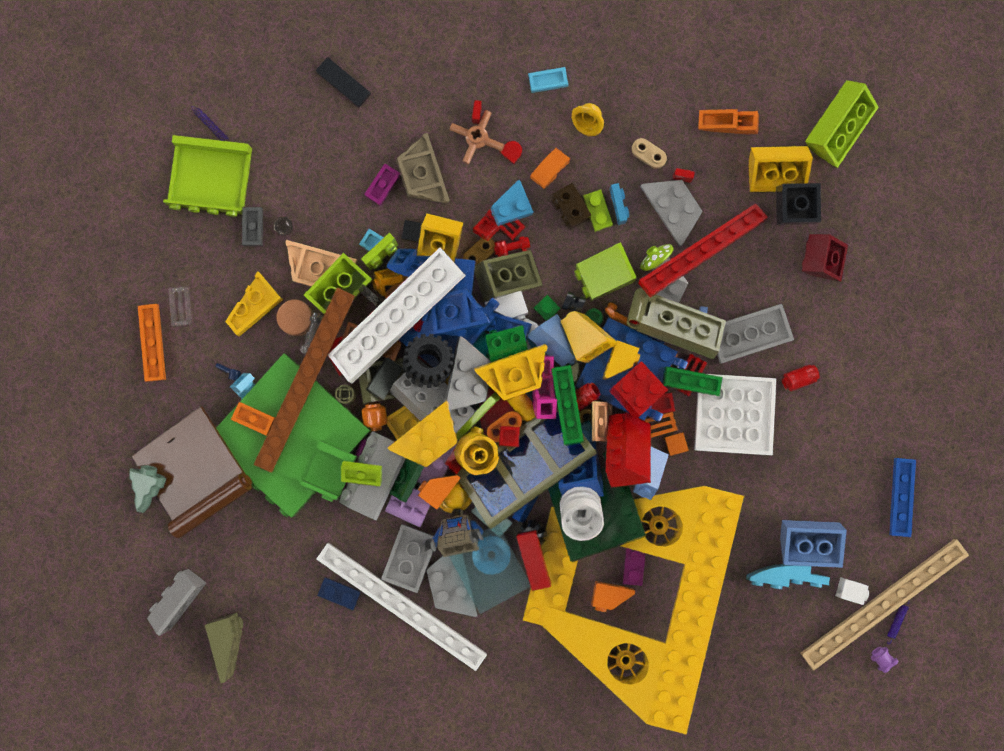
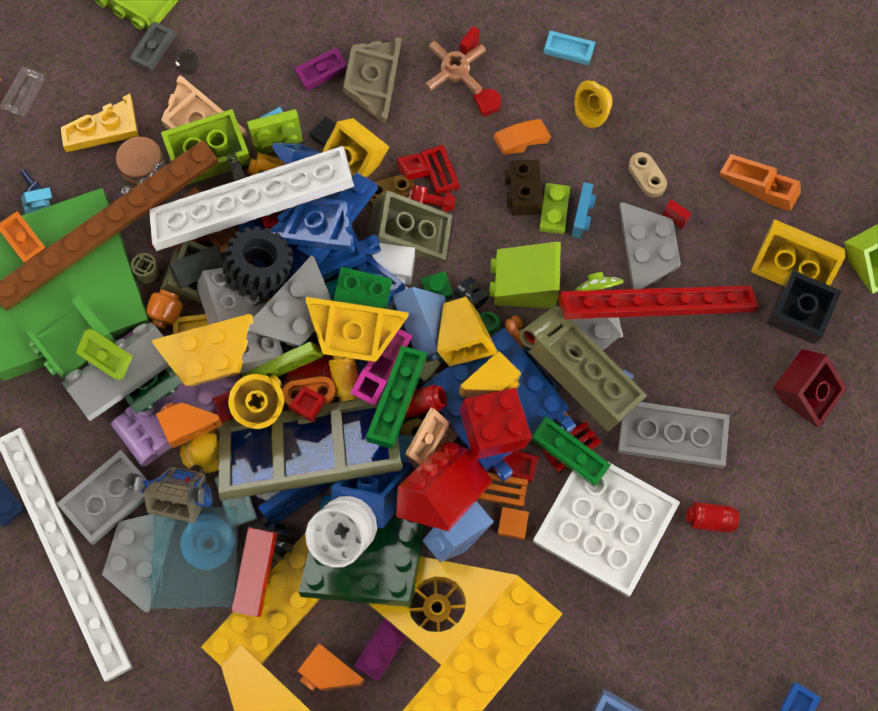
camera: 25 degrees right, 15 degrees down
(512, 205) = (455, 155): dark azure wing -> none

